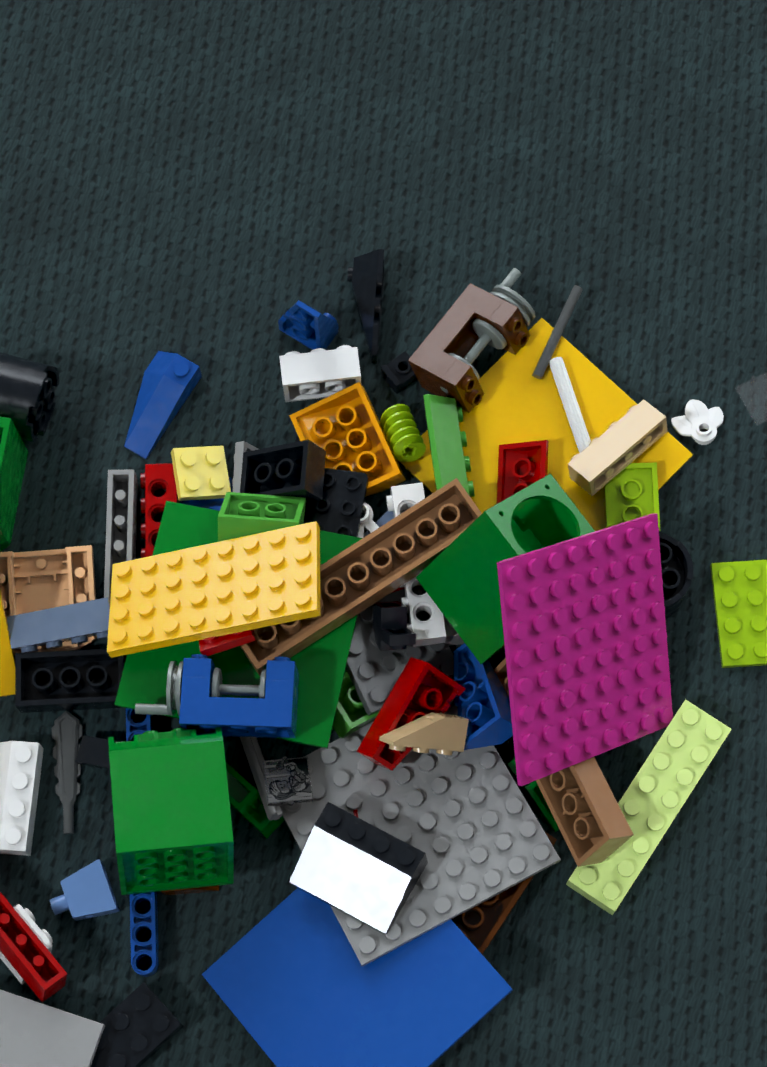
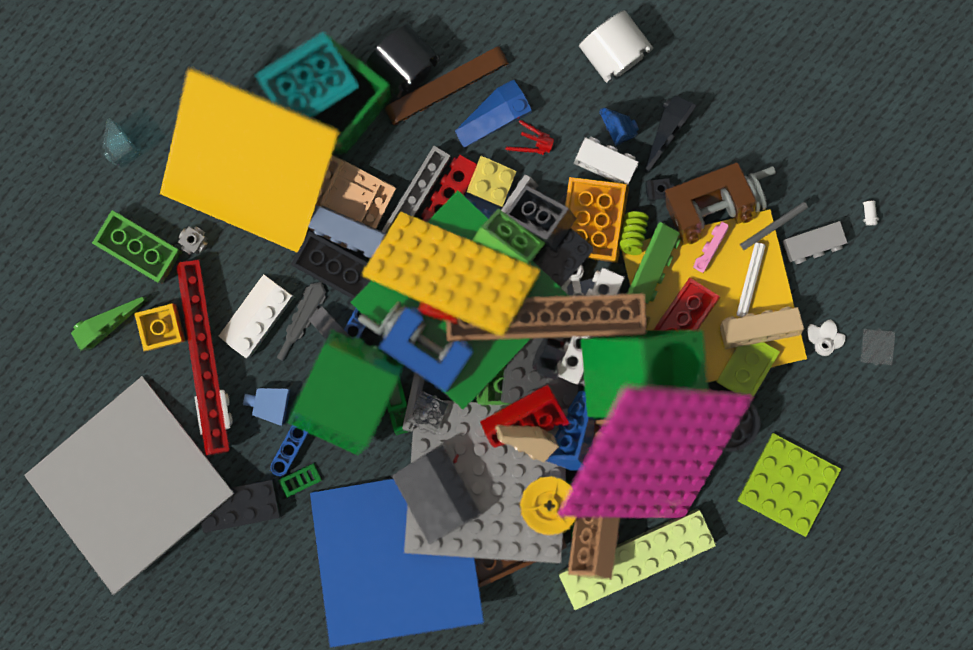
camera: 30 degrees right, 15 degrees up
(82, 400) = (445, 85): none -> reddish brown beam
(167, 988) = (284, 487): none -> green slope
(235, 397) = (544, 141): none -> red plant
(252, 242) = (615, 46): none -> white brick
(494, 817) = (538, 495): none -> yellow piece
(502, 397) = (710, 248): none -> bright pink hinge
(616, 325) = (814, 243): none -> light grey brick
(657, 259) = (870, 213): none -> white pin

